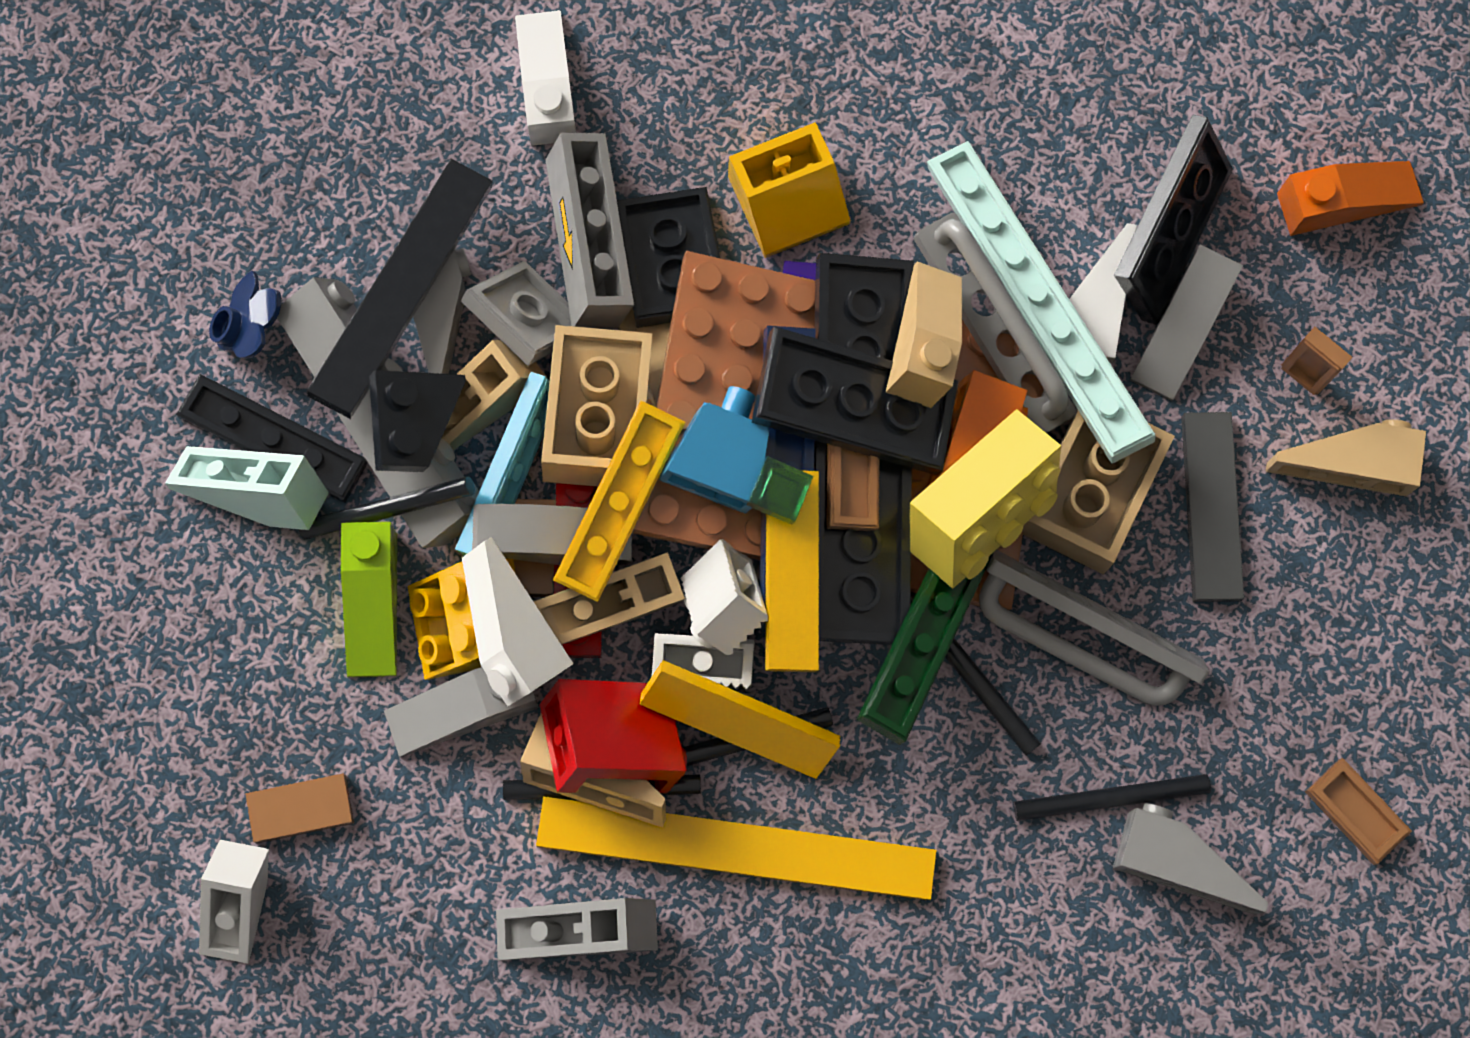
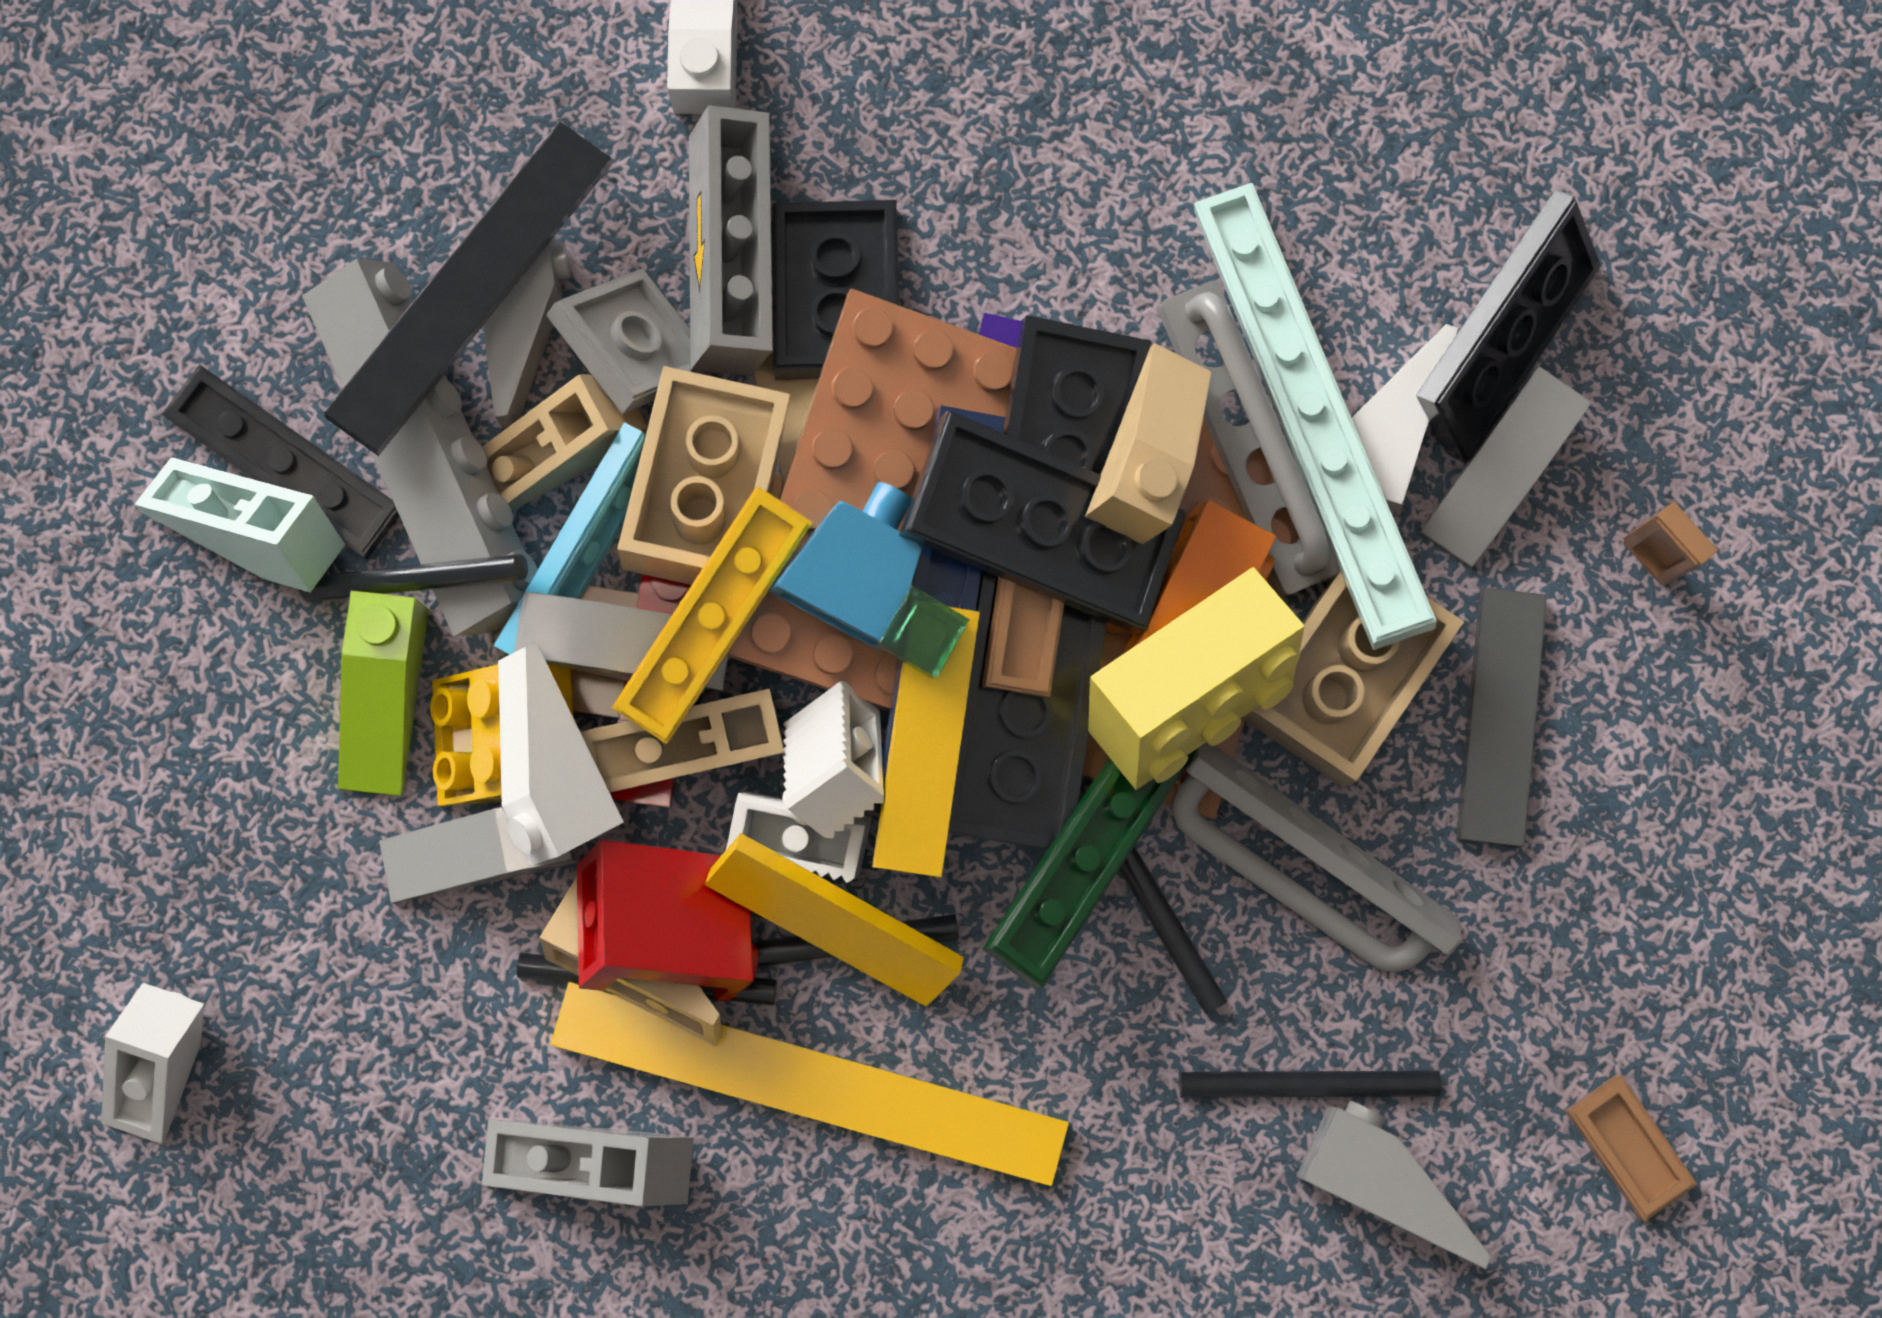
camera: 10 degrees right, 5 degrees up
(243, 322) = (259, 308): dark blue plate -> none
(299, 808) = (253, 953): medium nougat tile -> none
(410, 416) = (456, 464): black wing -> none
(789, 189) = (1003, 219): yellow slope -> none
(1347, 194) = (1749, 320): orange slope -> none
(1373, 458) = (1725, 682): tan slope -> none

